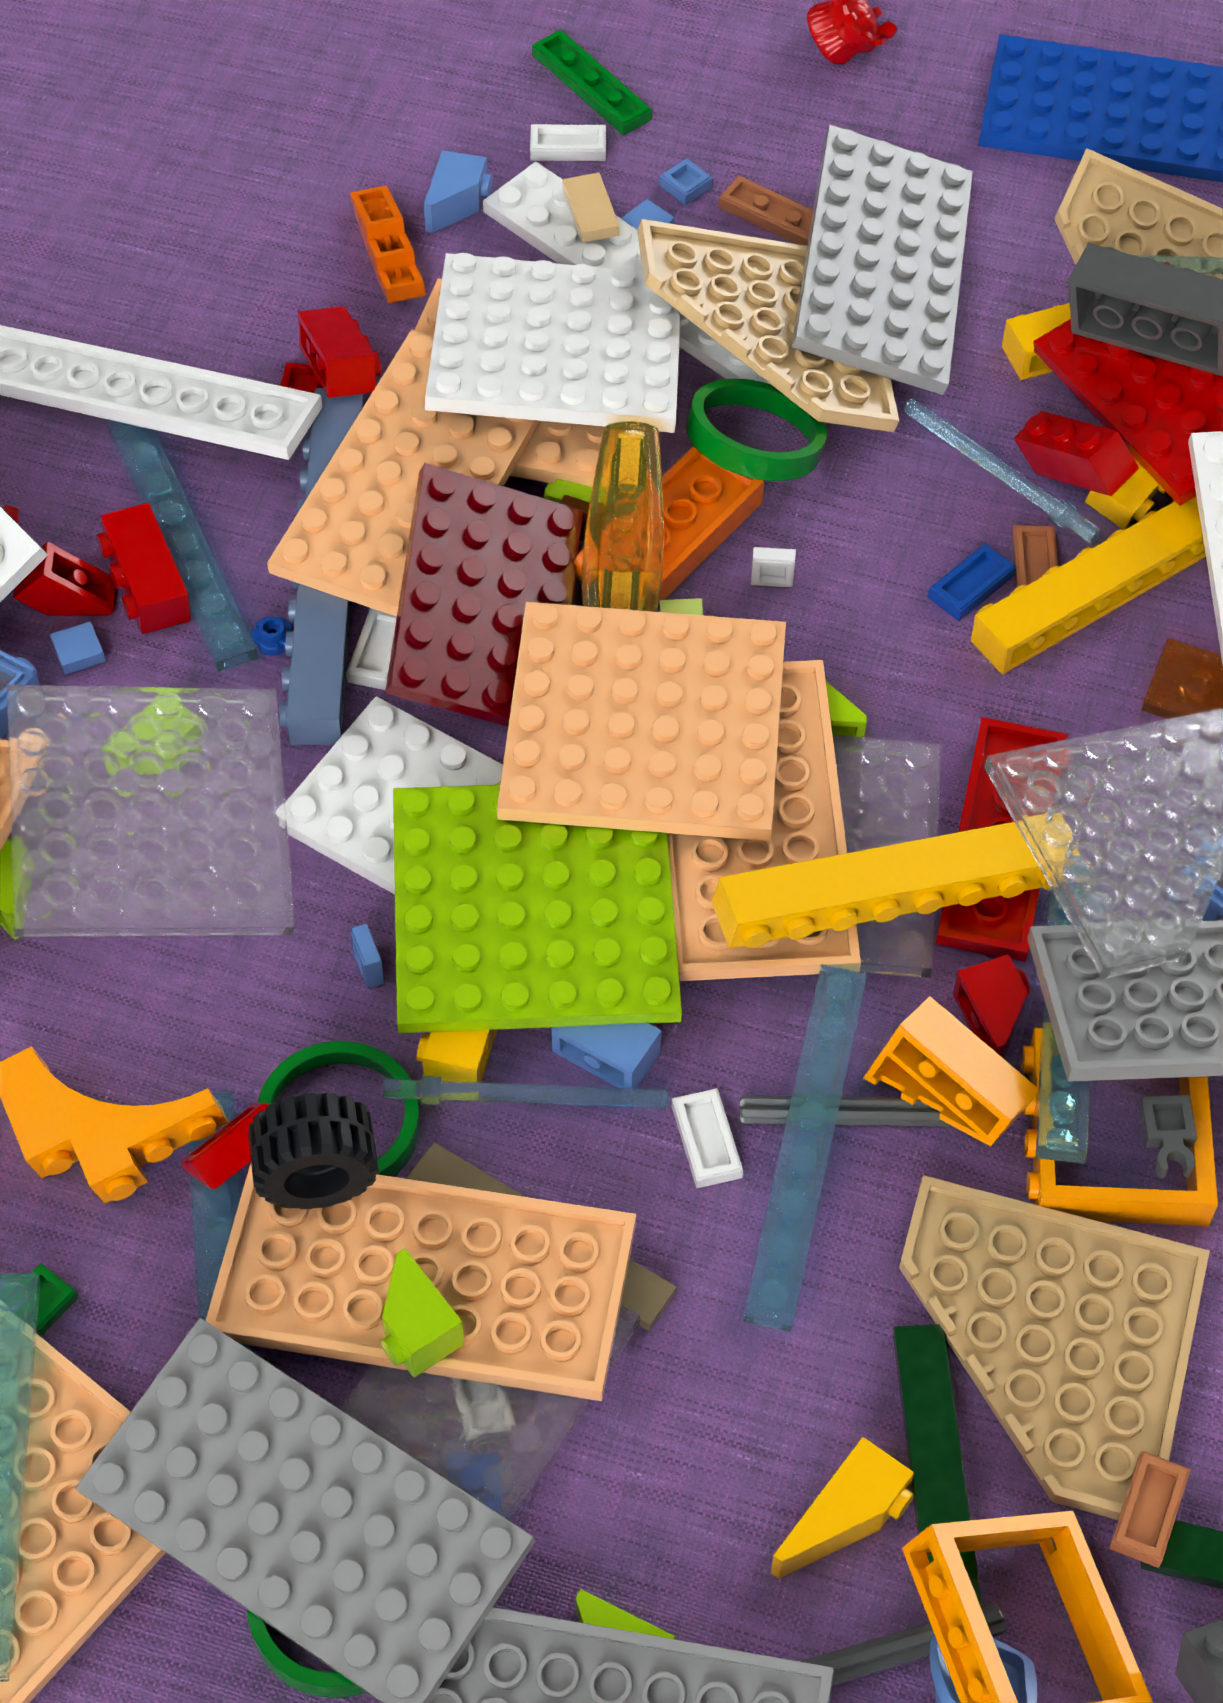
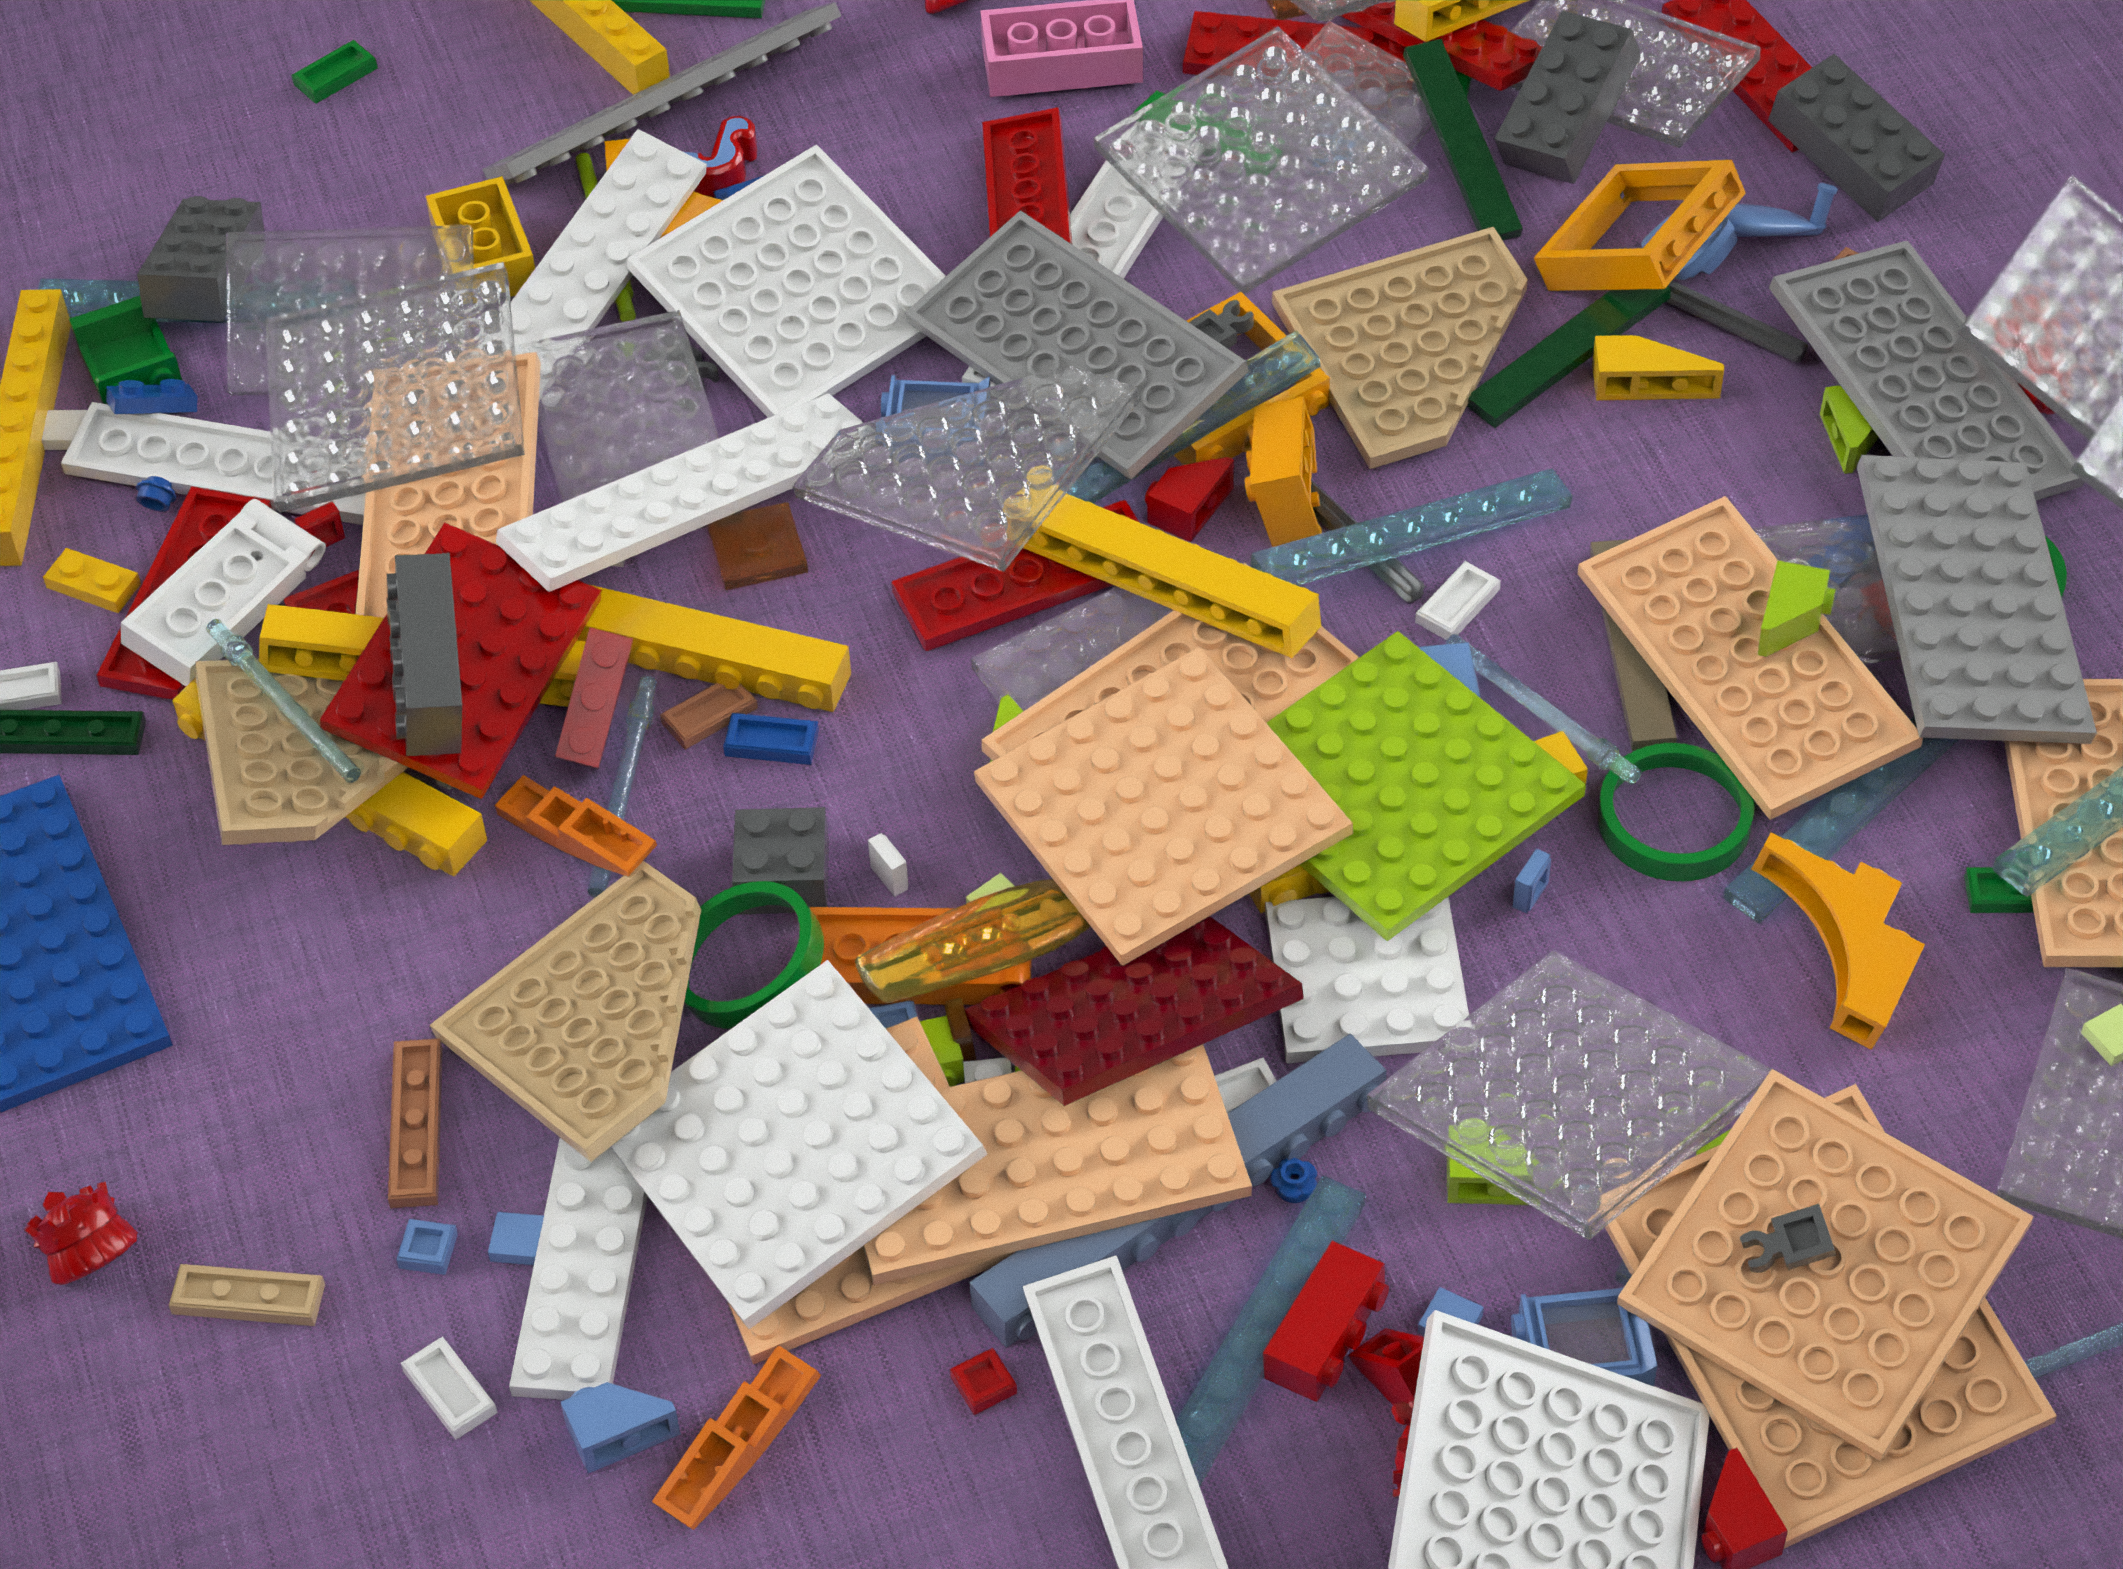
camera: 125 degrees left, 5 degrees down
(224, 1151) = (1755, 820): red slope -> none
(312, 1151) = (1753, 722): black tyre -> none
(338, 351) = (943, 1334): red brick -> none
(590, 207) = (555, 1270): tan tile -> none
(592, 82) = (333, 1431): green tile -> none
(732, 89) = (247, 1295): none -> tan tile
(832, 505) = (785, 849): none -> dark grey brick
(884, 260) = (431, 990): plate -> none
(970, 411) = (575, 826): none -> orange slope
(1149, 1509) = (1490, 228): nougat tile -> none

